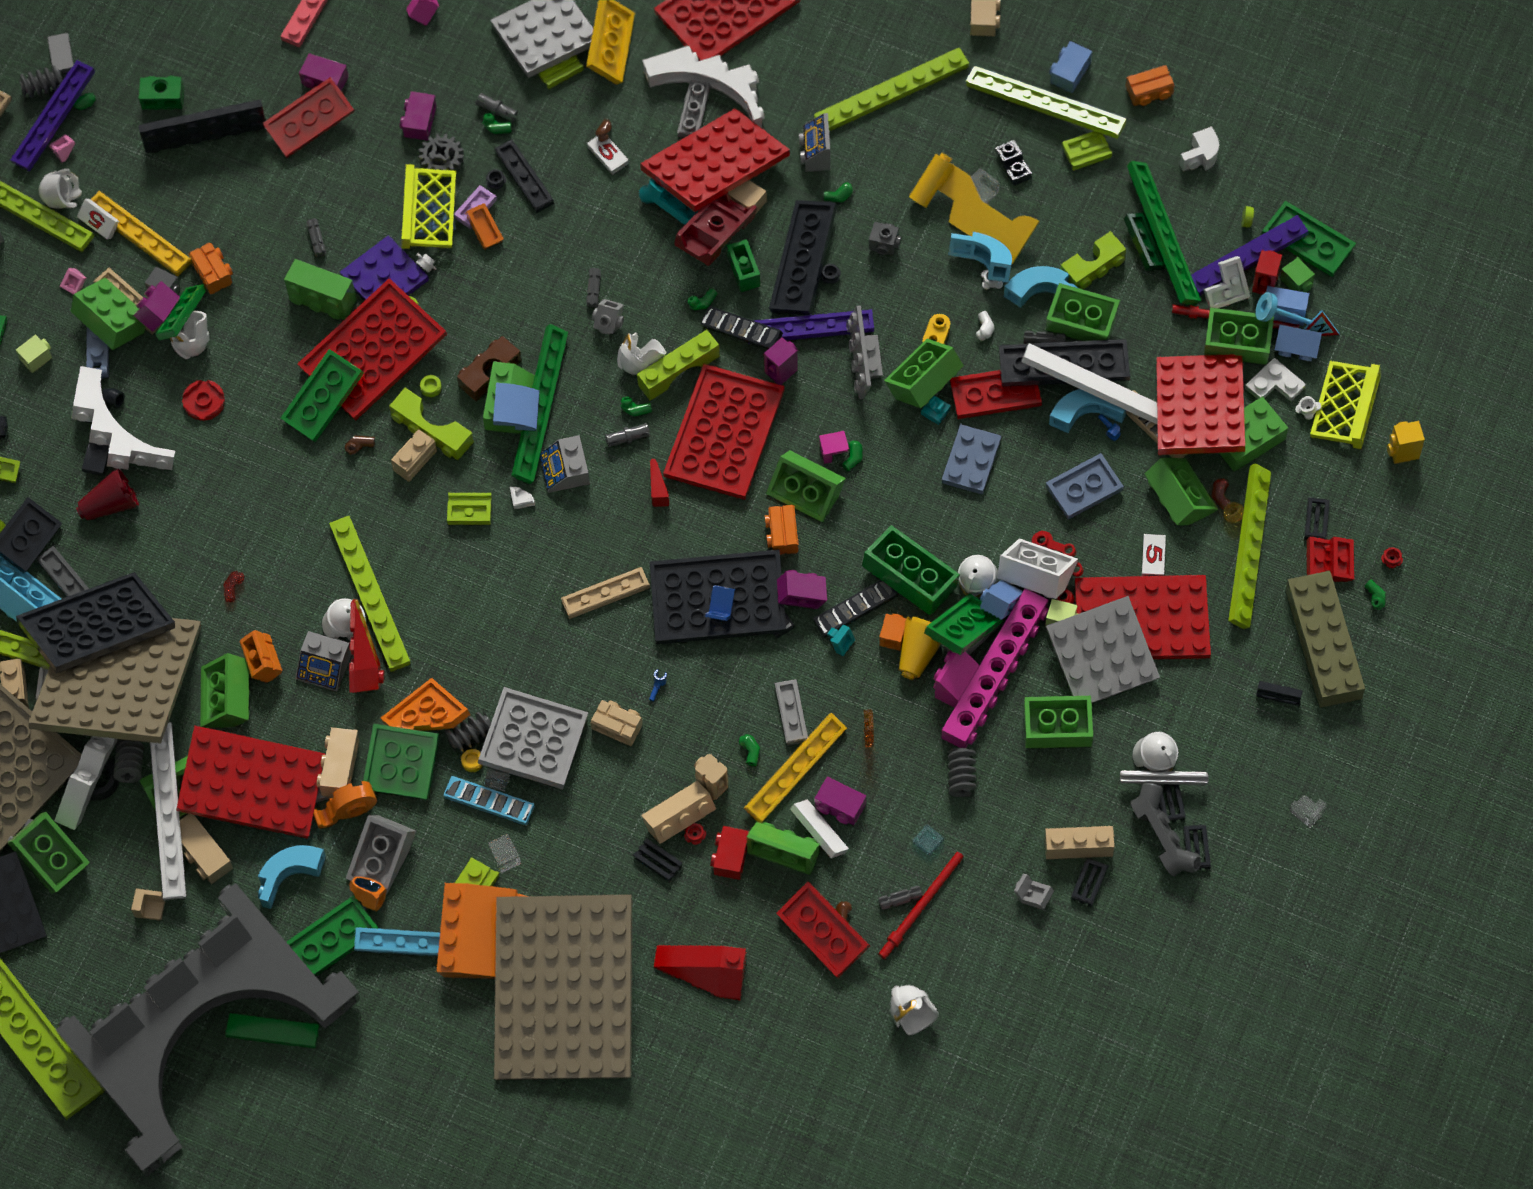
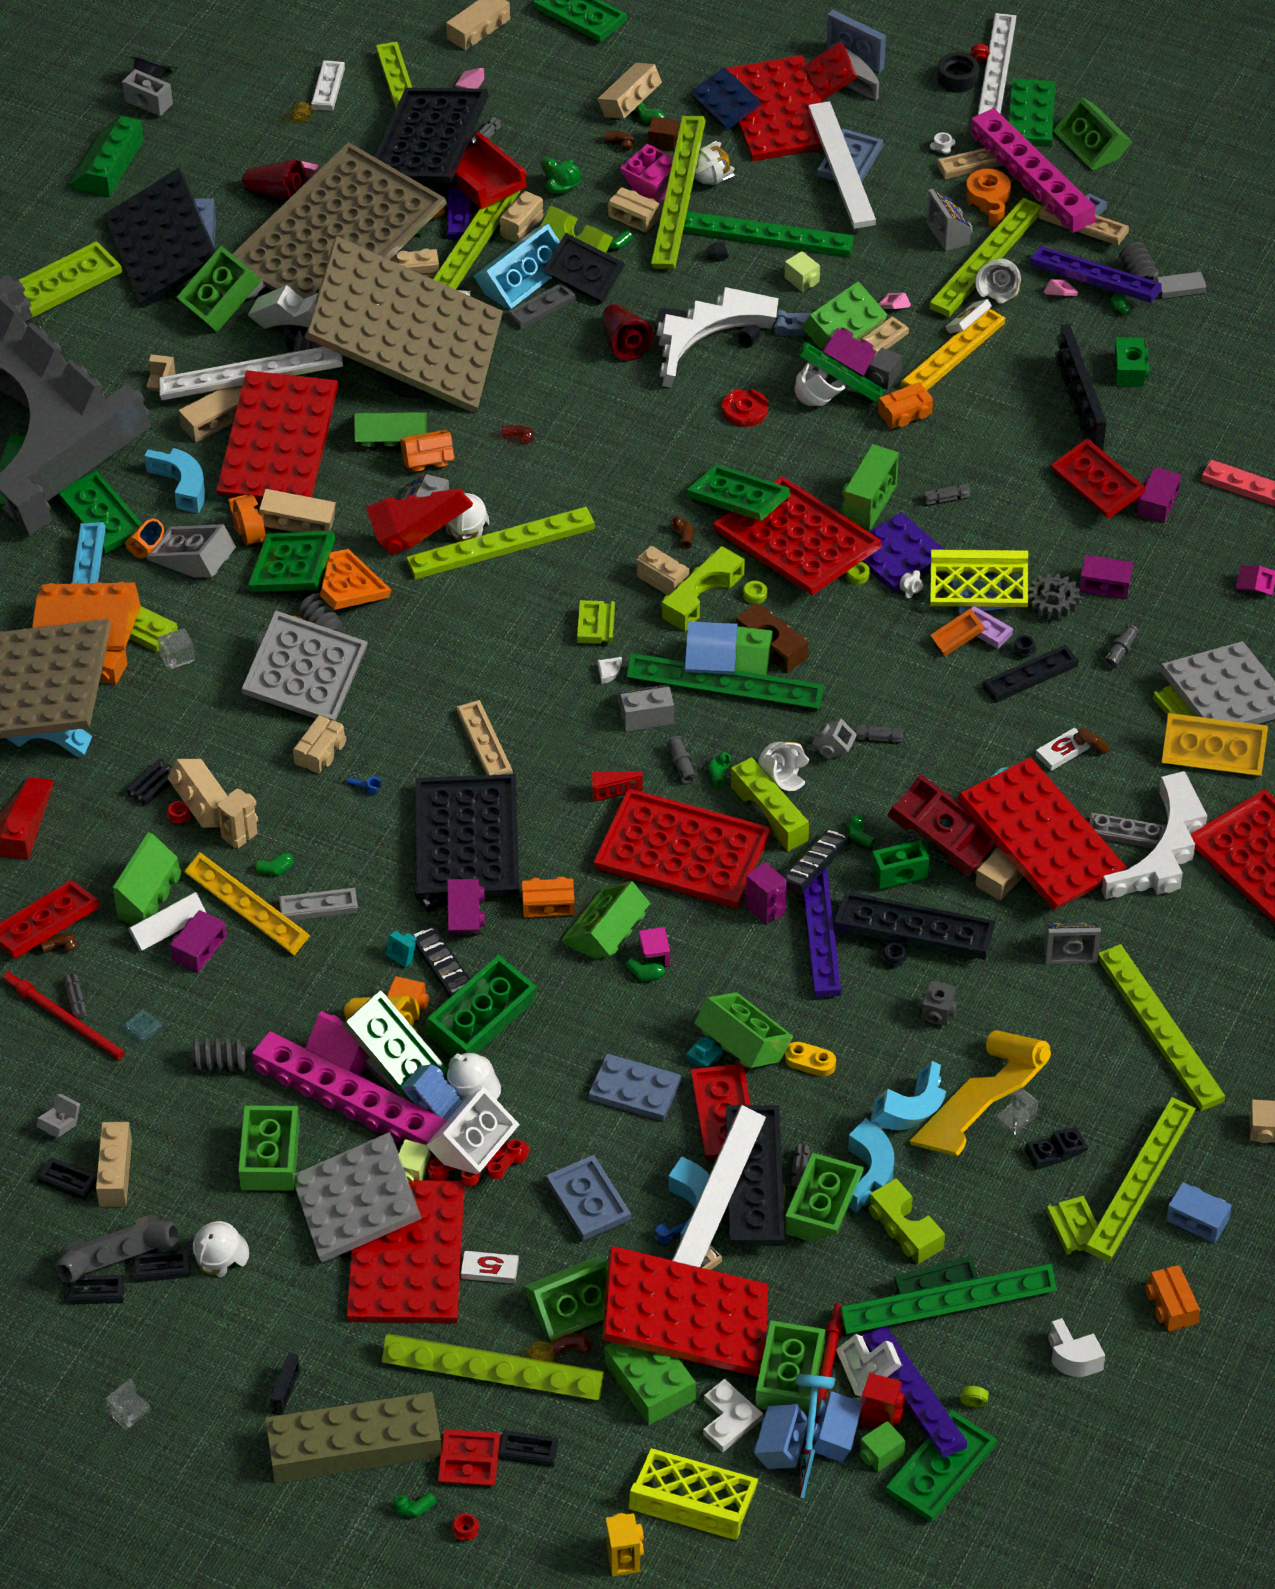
camera: 90 degrees right, 15 degrees down
(95, 622) = (469, 311): black plate -> none
(489, 800) = (242, 641): tile -> none
(495, 127) = (1098, 645): green arm -> none
(721, 603) = (445, 830): blue bracket -> none
(730, 852) = (136, 831): red brick -> none
(840, 195) = (1007, 969): green arm -> none
(865, 353) = (773, 973): light grey bracket -> none
(868, 728) = (280, 950): clear orange tile -> none
(987, 326) = (816, 1109): white arm -> none
(1164, 777) = (184, 1252): light grey axle -> none
(1308, 402) = (689, 1447): white plate -> none

